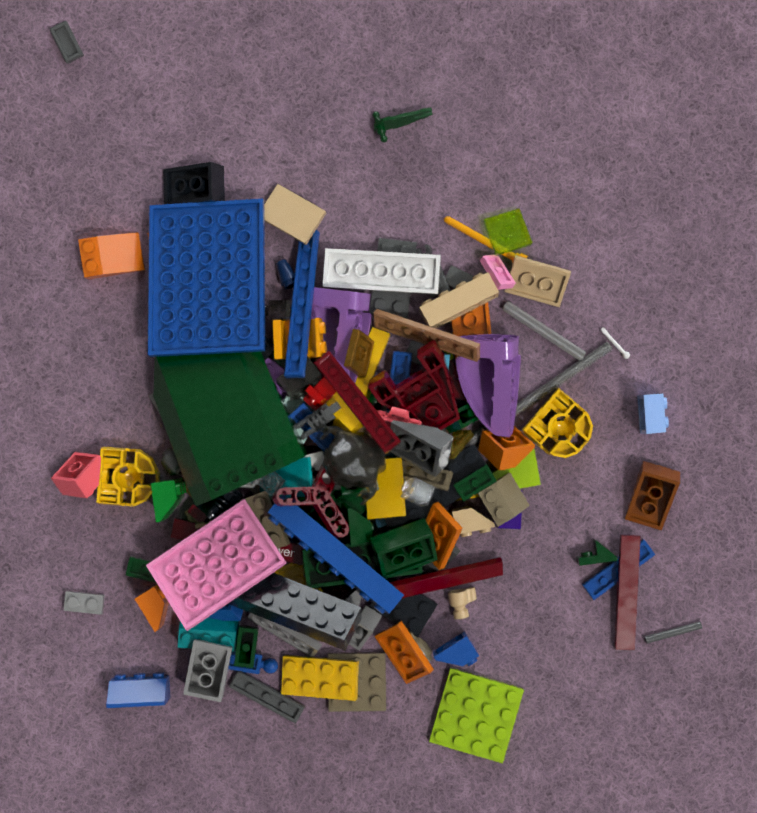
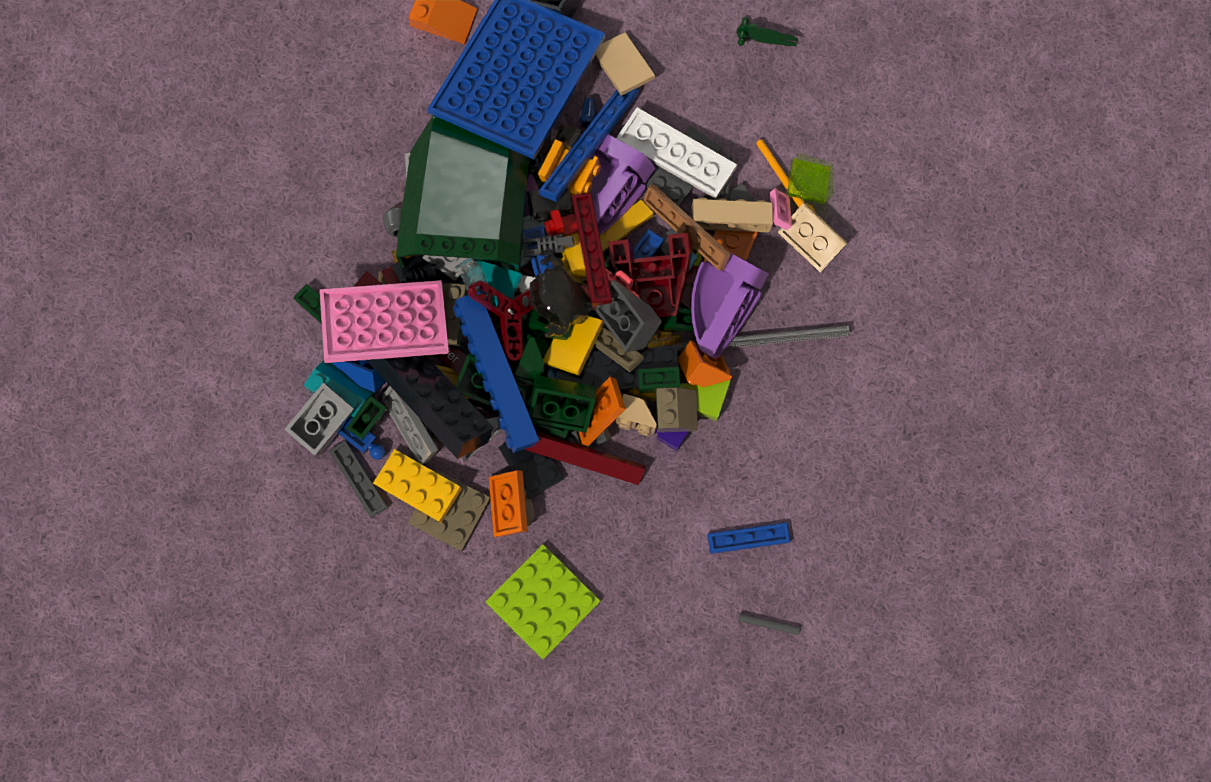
camera: 20 degrees right, 10 degrees down
(78, 475) = (302, 186): coral slope -> none
(84, 602) = (240, 303): light grey plate -> none
(125, 481) = (347, 218): yellow connector -> none
(138, 690) = (245, 406): slope -> none
(154, 606) = (305, 336): orange slope -> none
(167, 496) = (372, 244): green slope -> none
(359, 353) = (616, 210): pearl gold tile -> none
(365, 628) = (482, 462): light grey slope -> none
(417, 491) = (601, 357): clear brick -> none
(457, 651) = (558, 528): blue slope -> none
(459, 599) = (587, 484): tan piece -> none
(543, 330) = (795, 285): light grey axle -> none
(568, 427) = (762, 383): yellow connector -> none
(601, 555) = (740, 515): dark green slope -> none
(625, 354) = (858, 347): white hinge -> none
(627, 592) = (745, 562): dark red tile -> none
(652, 413) = (855, 409): light blue slope -> none
(653, 495) = (816, 485): dark orange slope -> none

